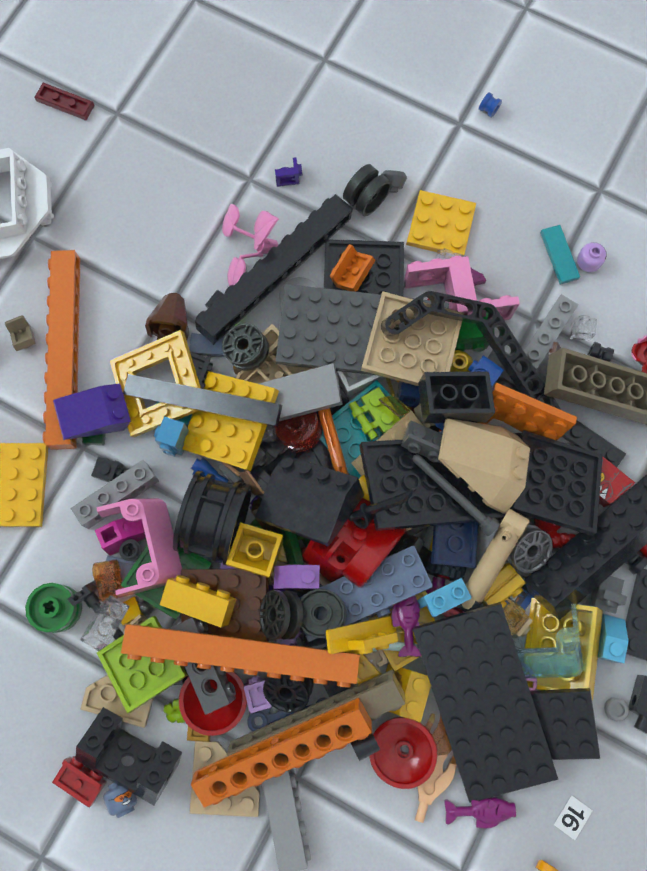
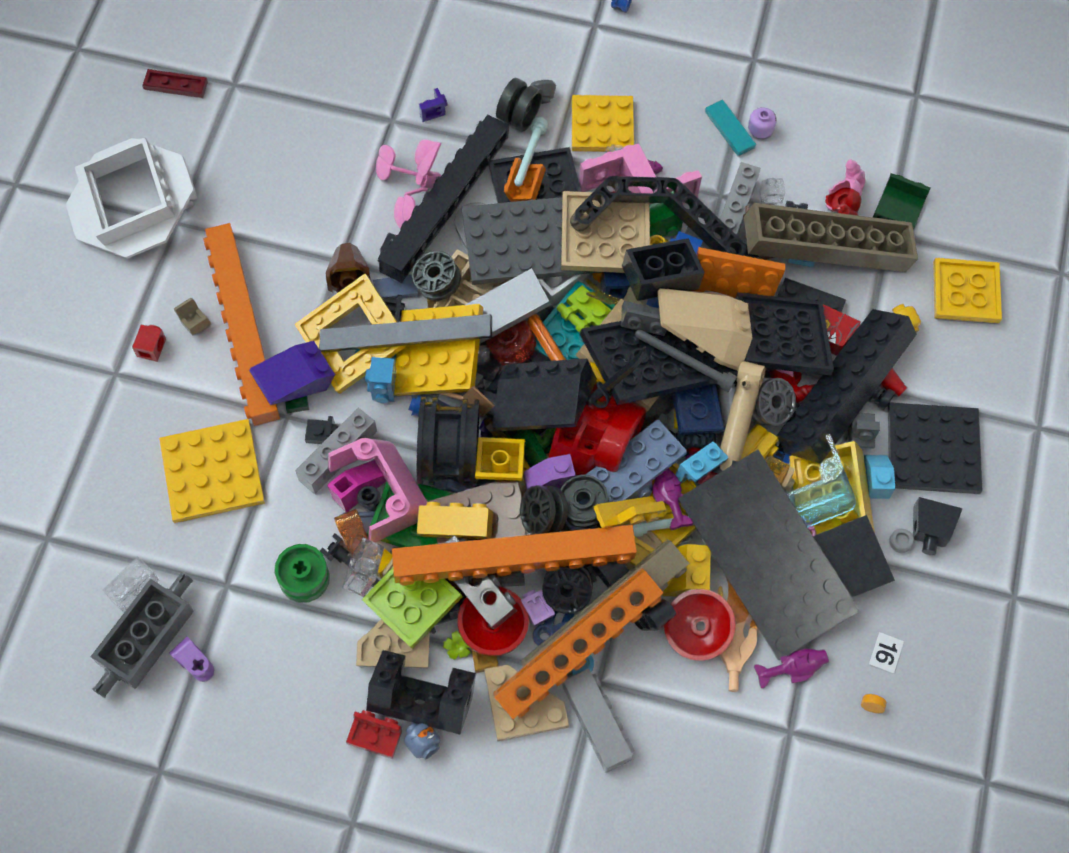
camera: 15 degrees left, 10 degrees down
(380, 216) = (538, 128): none -> light aqua piece

